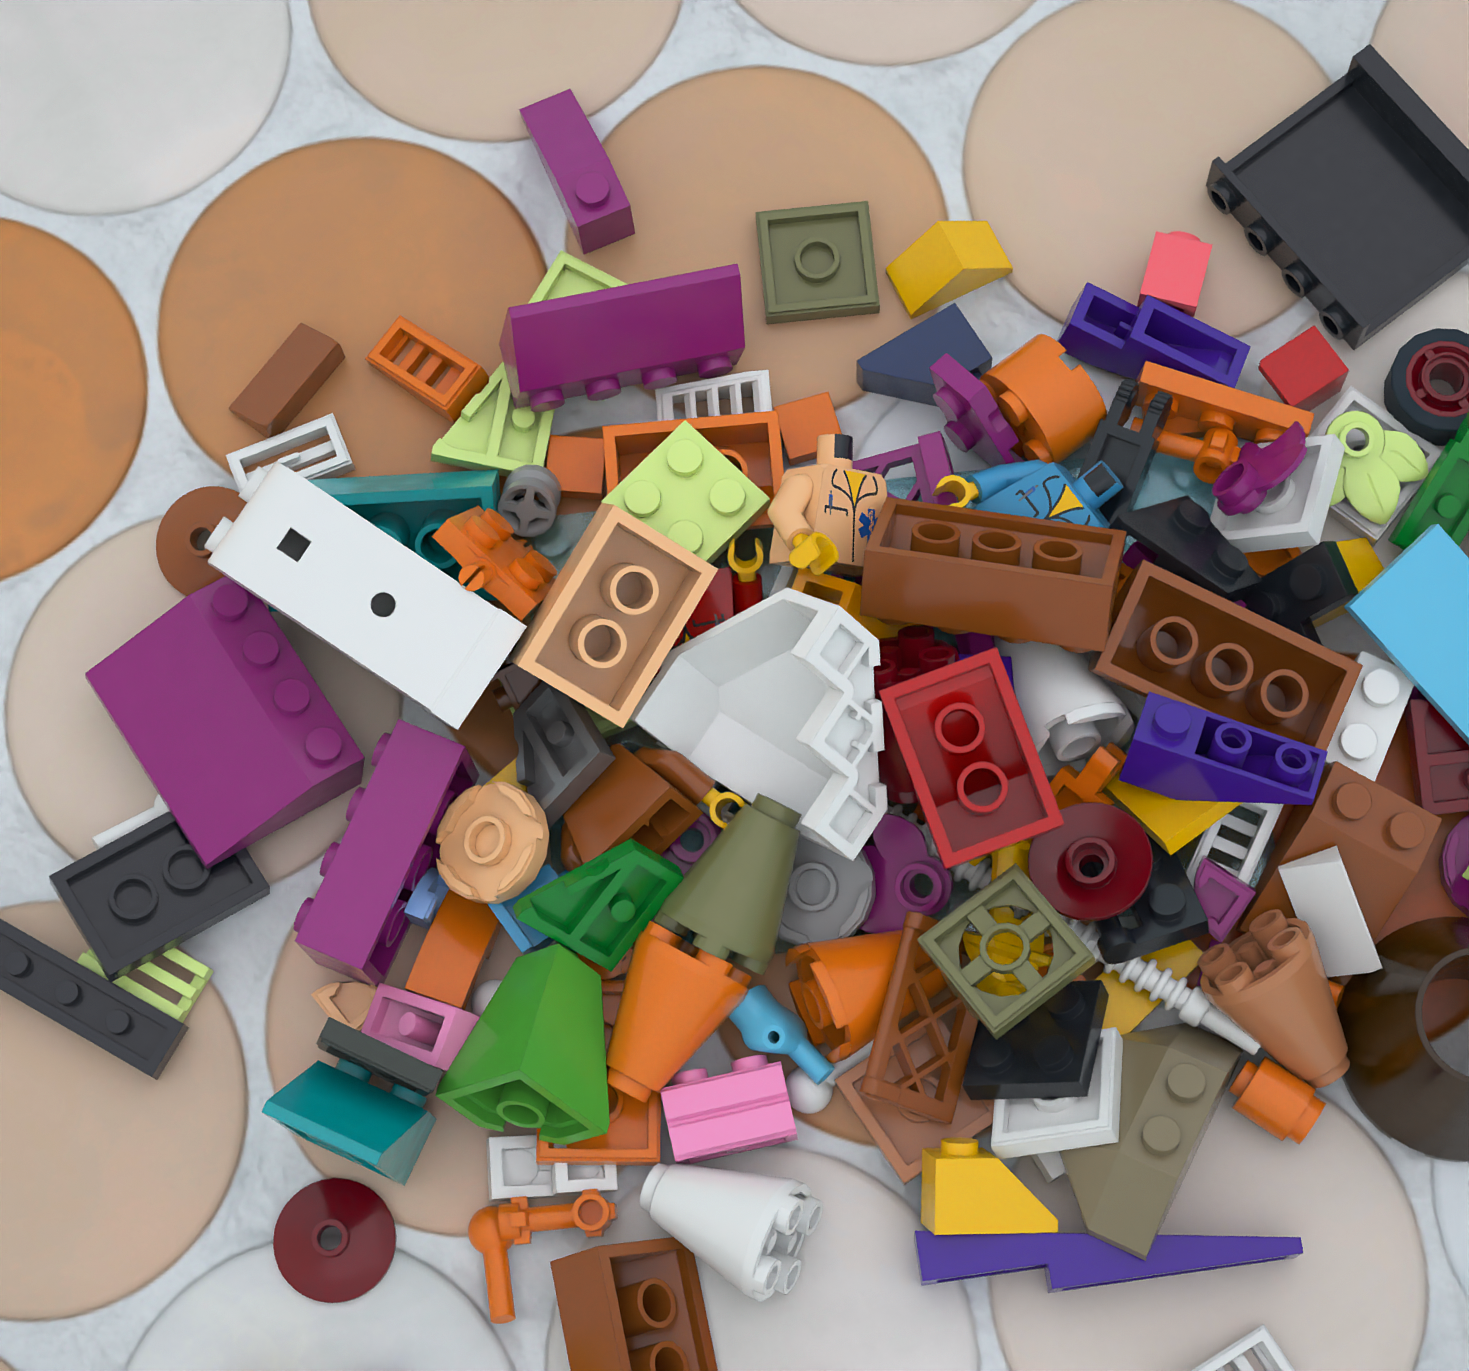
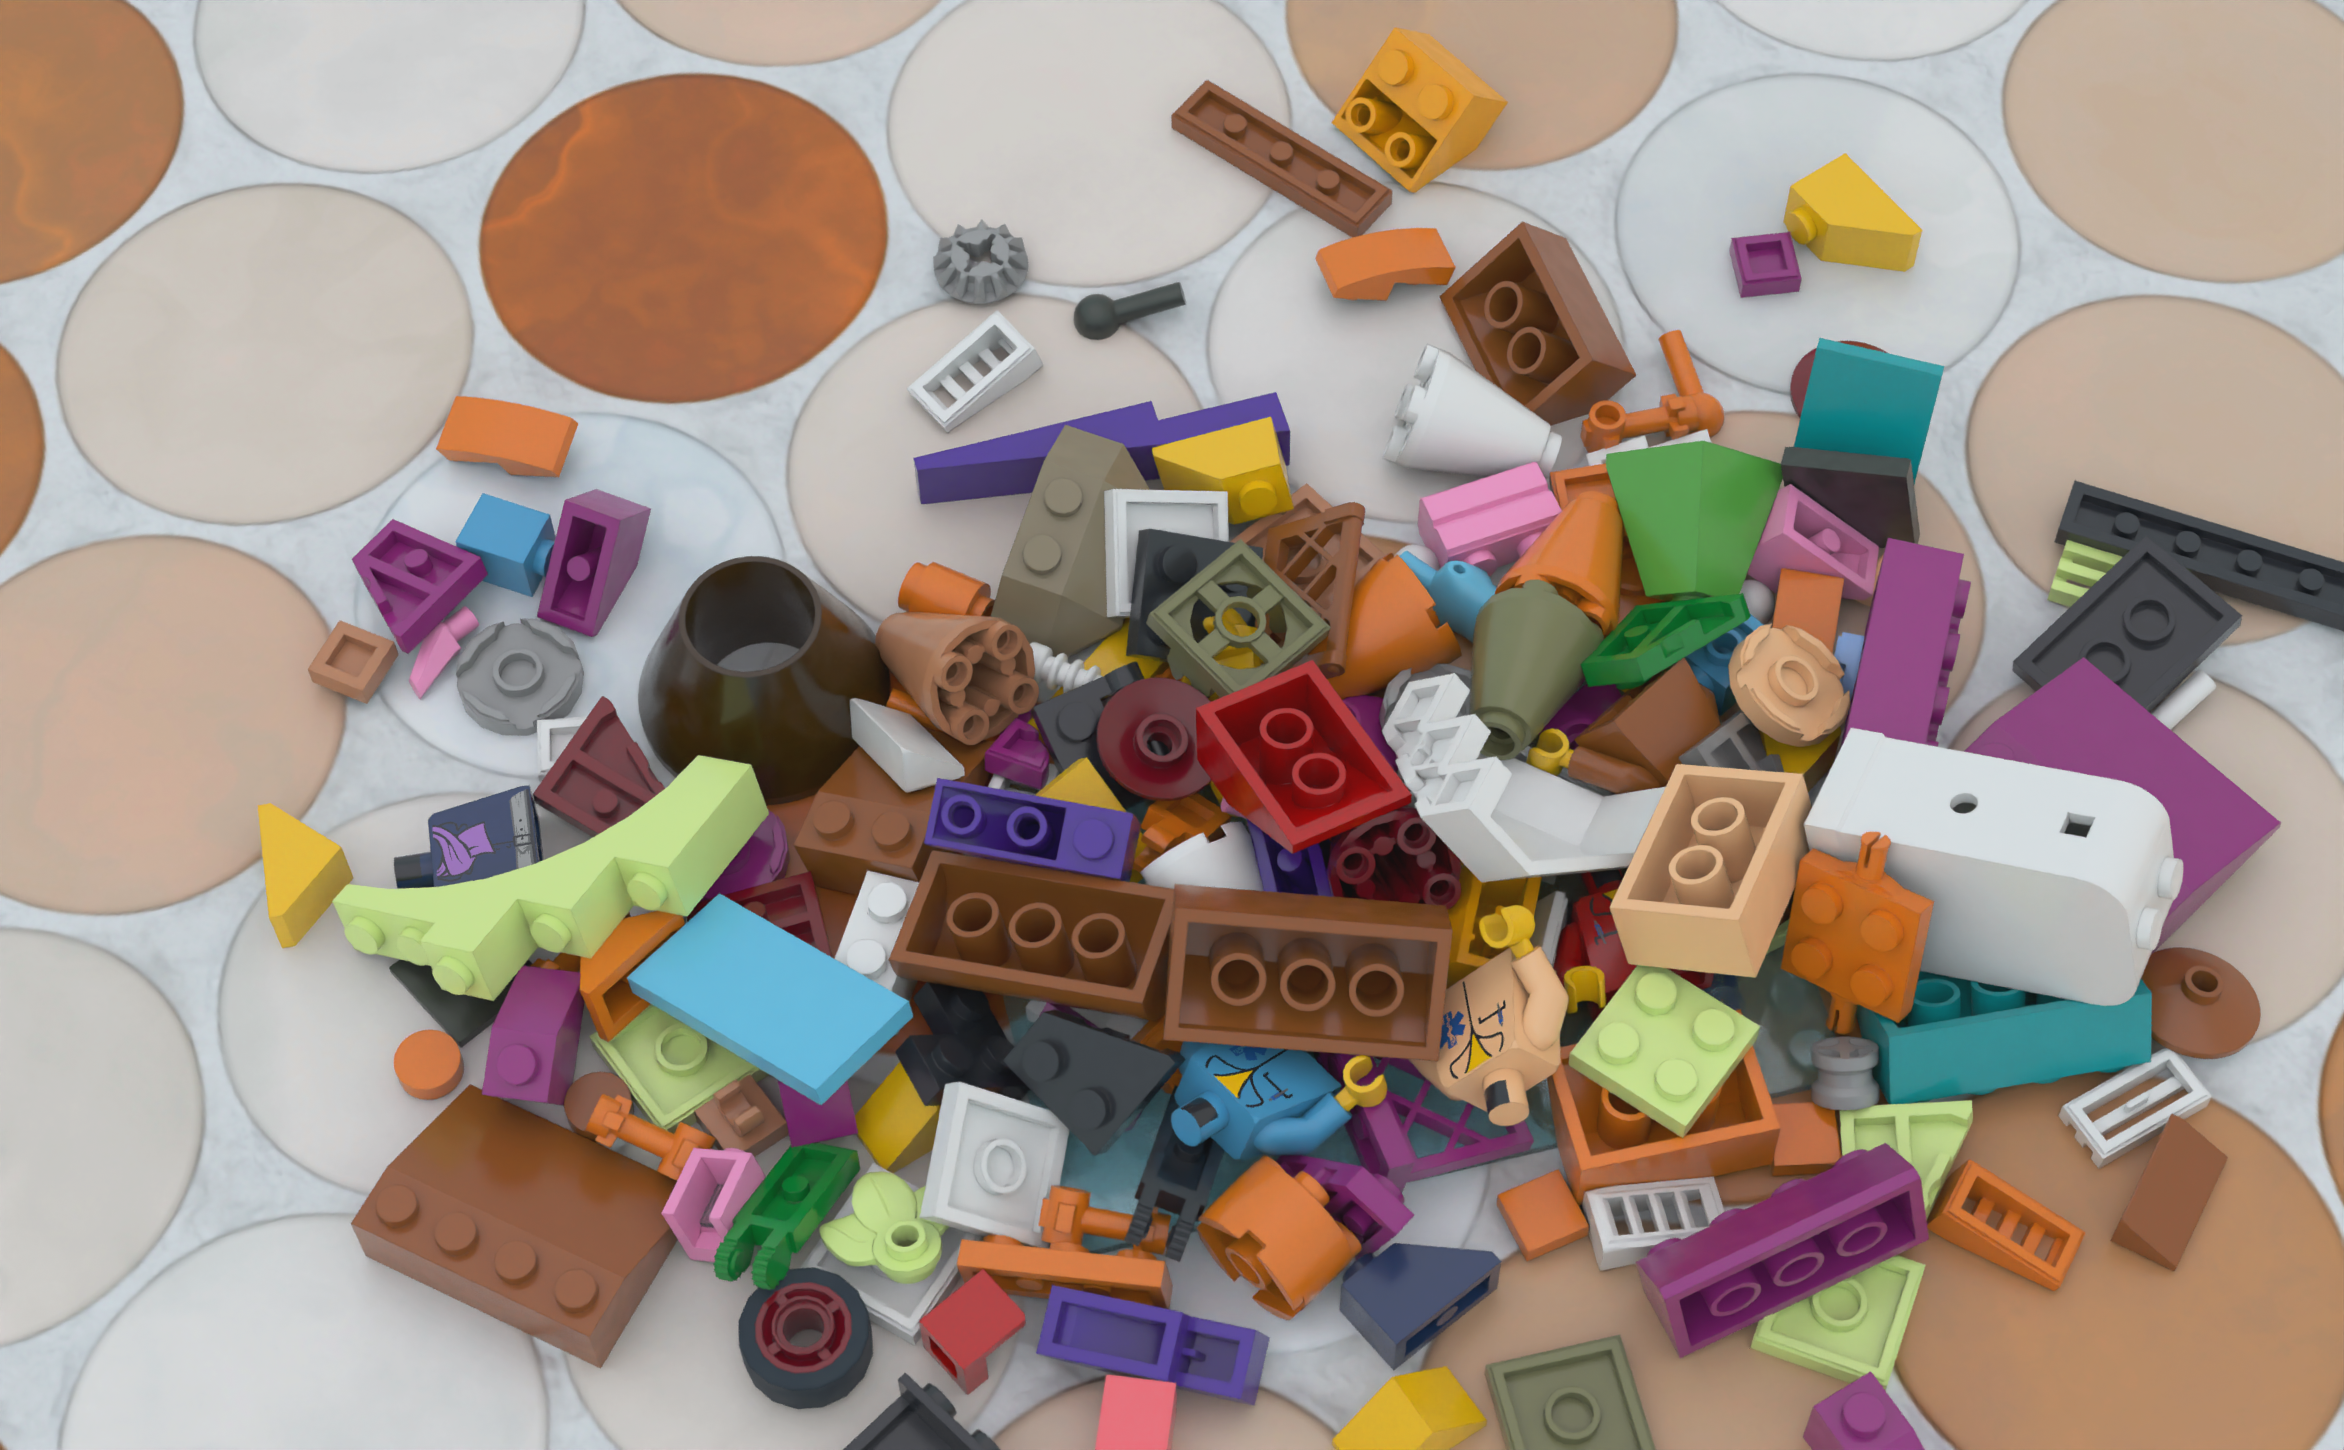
camera: 165 degrees right, 15 degrees down
(1246, 481) = (1015, 1172): magenta plate -> none

